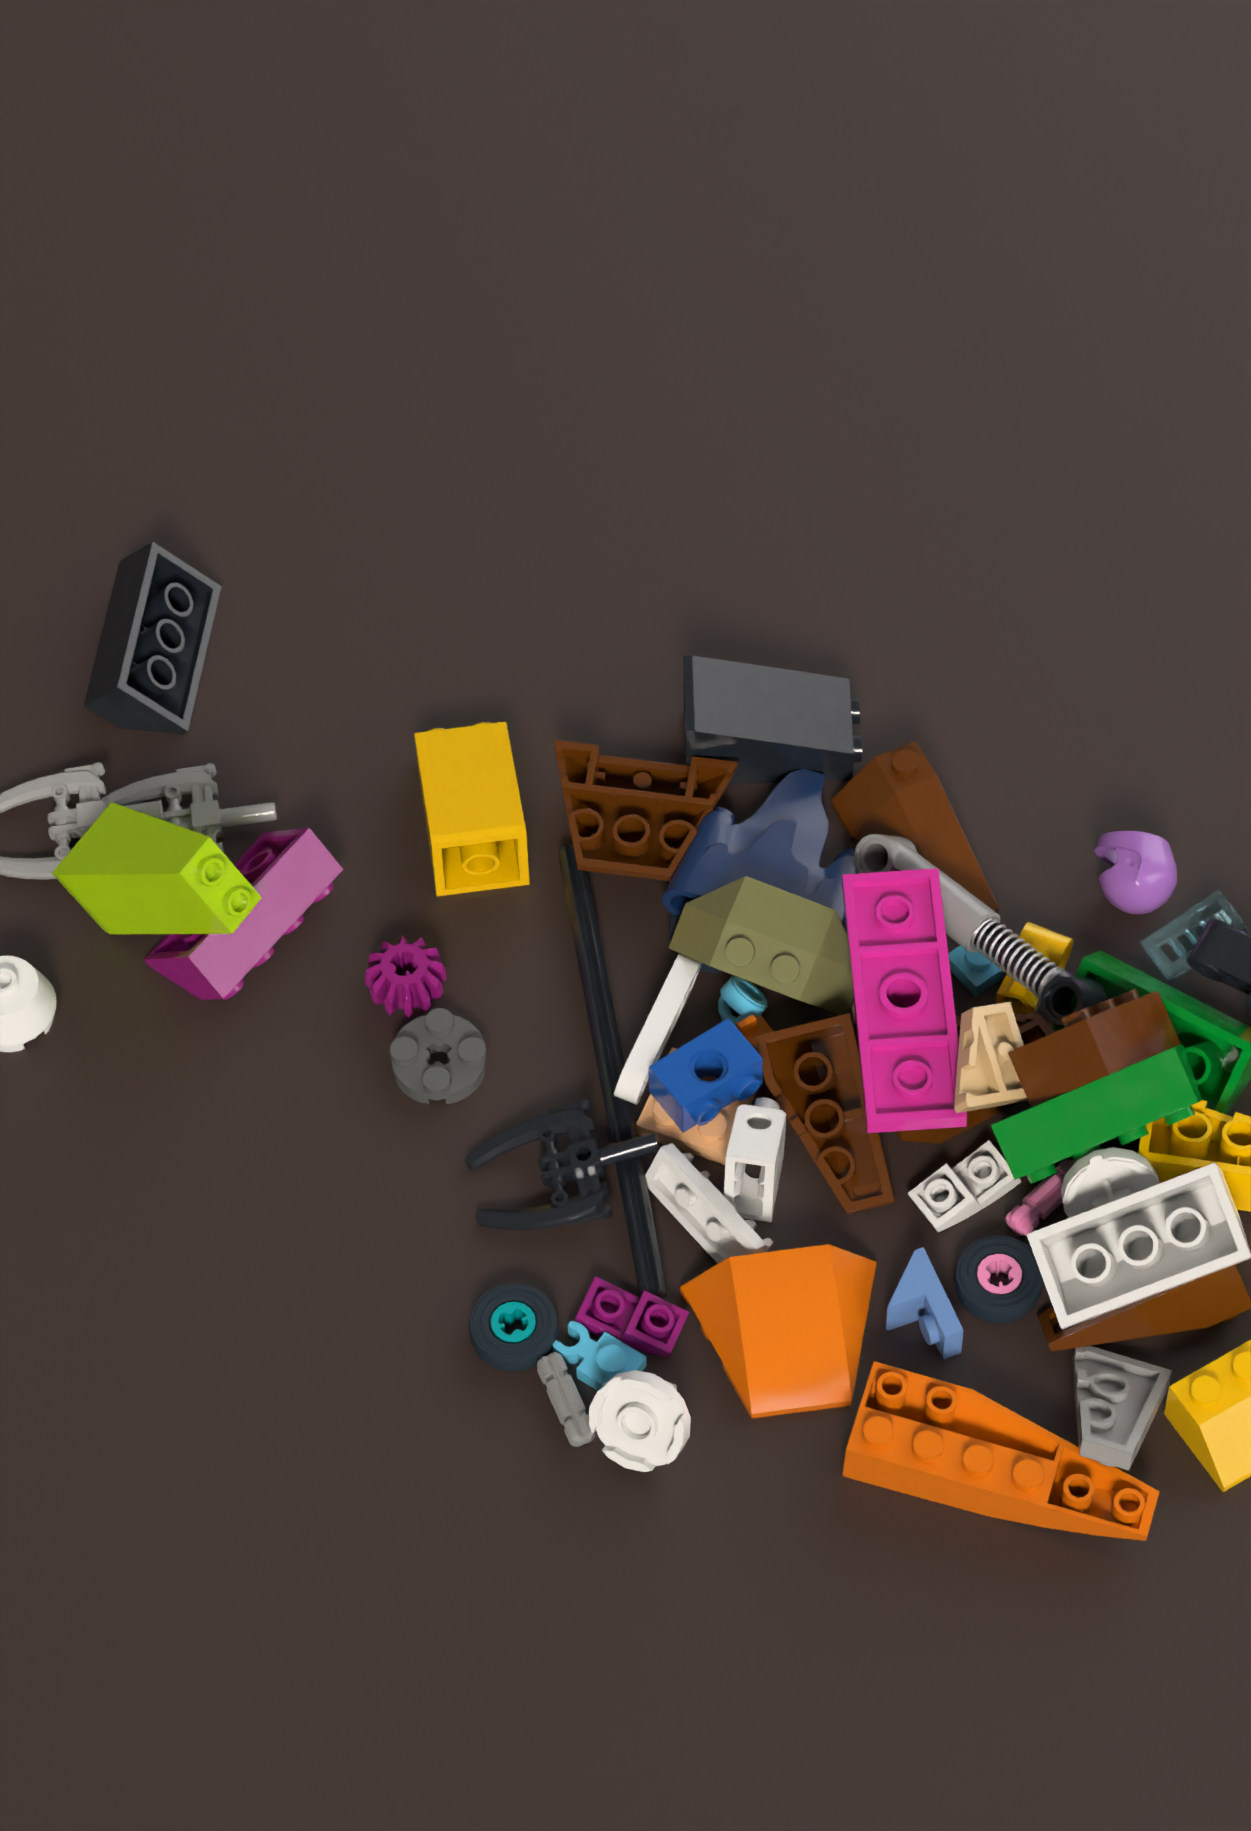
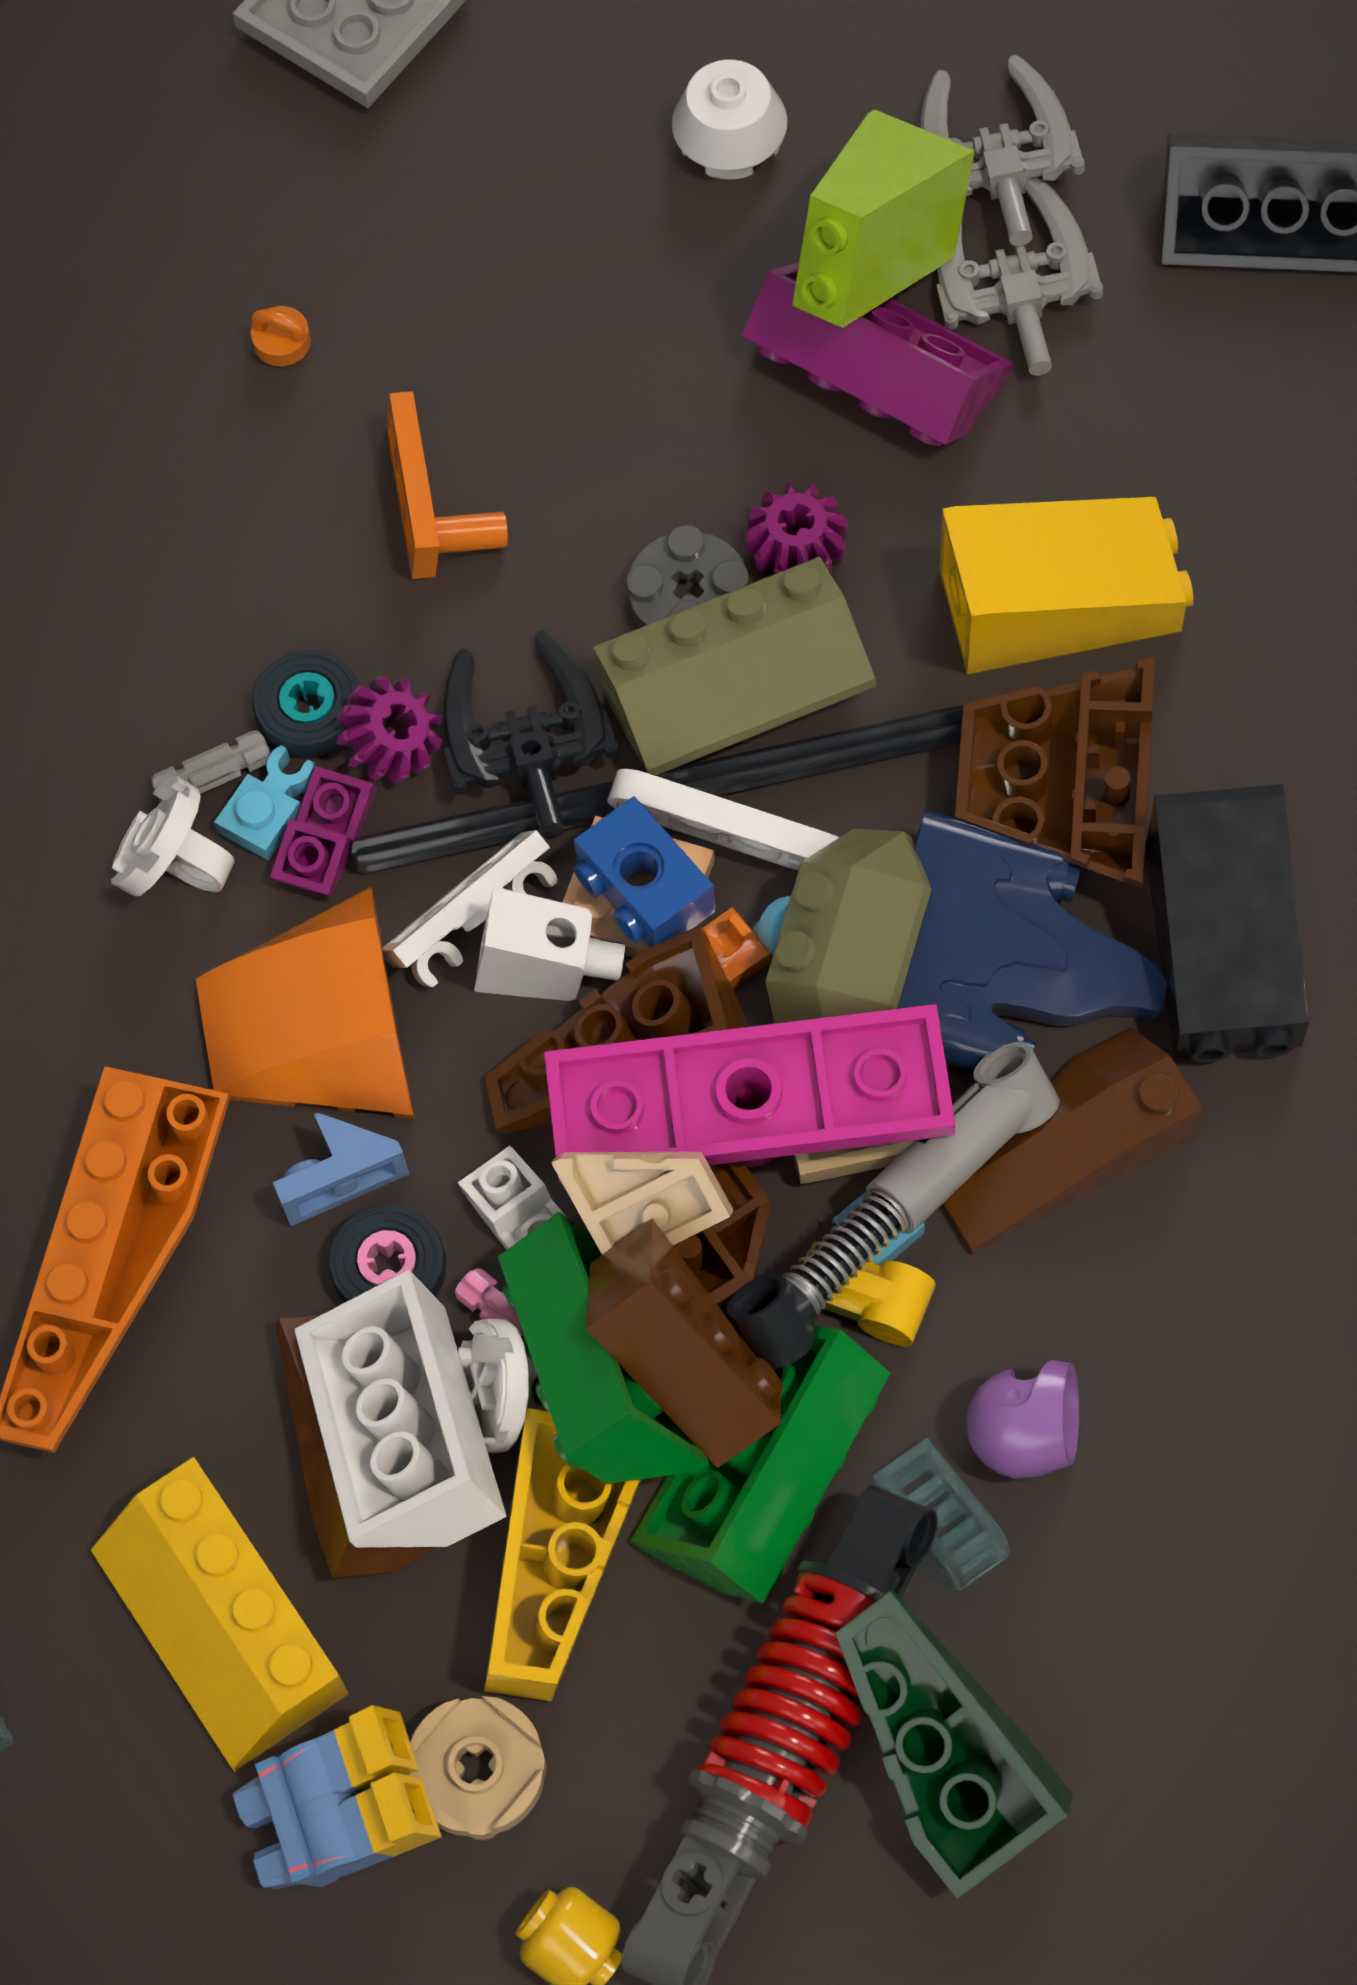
camera: 90 degrees right, 10 degrees up
(158, 1345) = (280, 335): none -> orange tile
(331, 1240) = (423, 532): none -> orange piece
(526, 1018) = (734, 667): none -> olive slope
(554, 1257) = (369, 737): none -> magenta gear
(1115, 1403) = (181, 1398): light grey wing -> none

